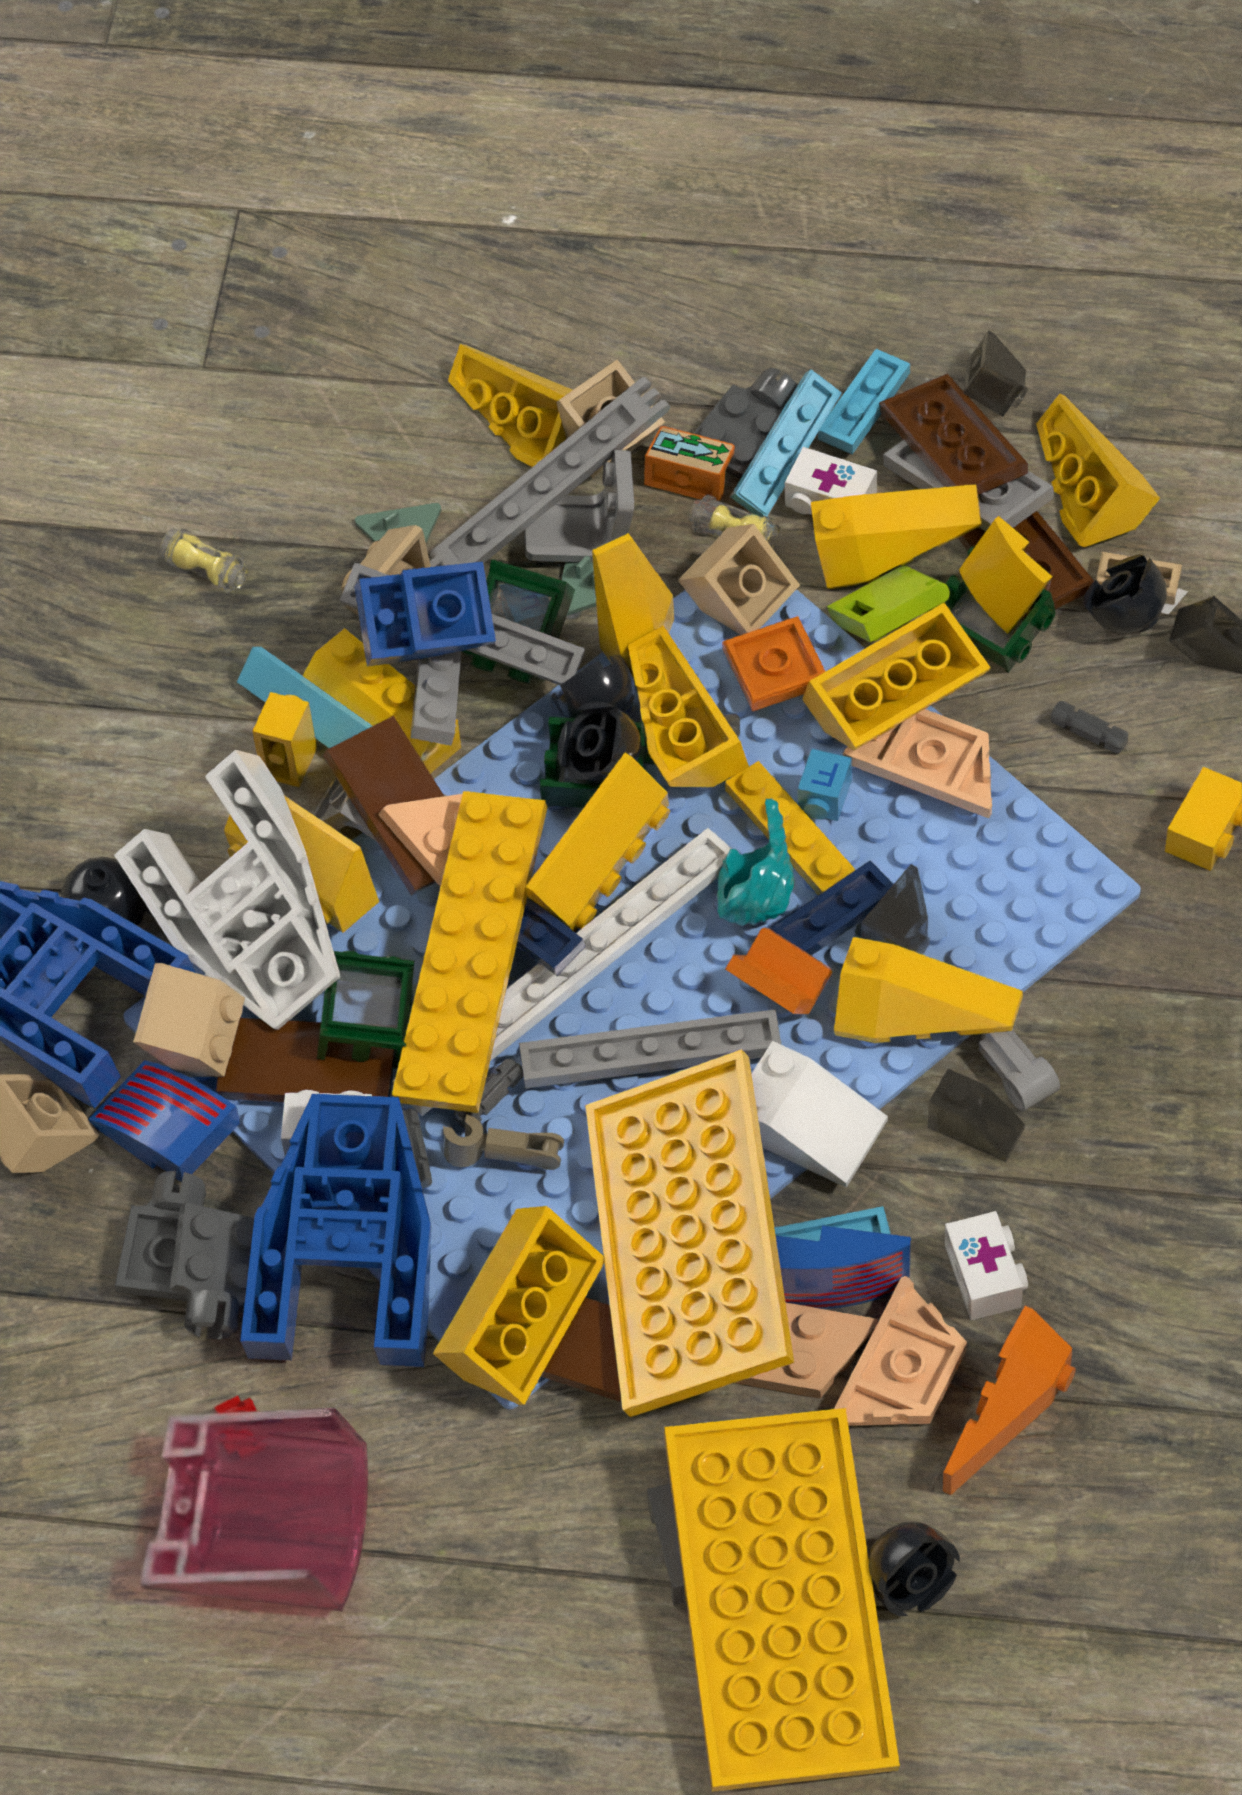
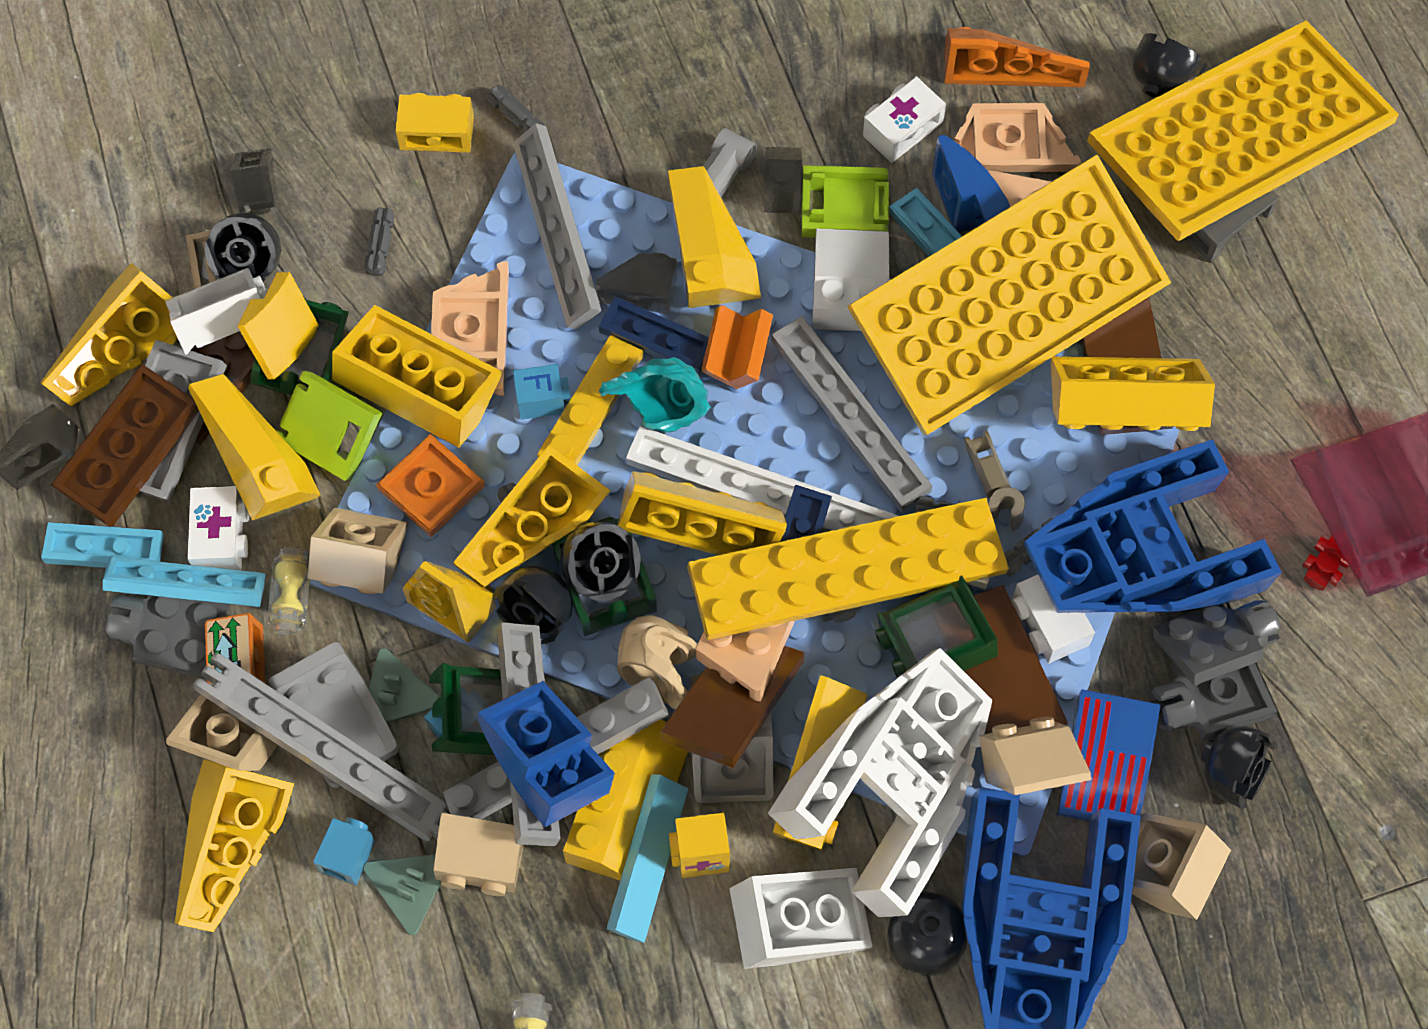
camera: 120 degrees left, 10 degrees up
(86, 1217) = (1237, 763): none -> black cylinder
(177, 797) = (799, 917): none -> white slope
(455, 486) = (345, 850): none -> dark azure brick
(485, 754) = (650, 649): none -> tan helmet
(910, 1178) = (852, 199): none -> lime container
(1029, 874) = (557, 227): none -> light grey plate
(1060, 547) = (213, 309): none -> white window
(1188, 903) = (512, 108): none -> dark grey axle

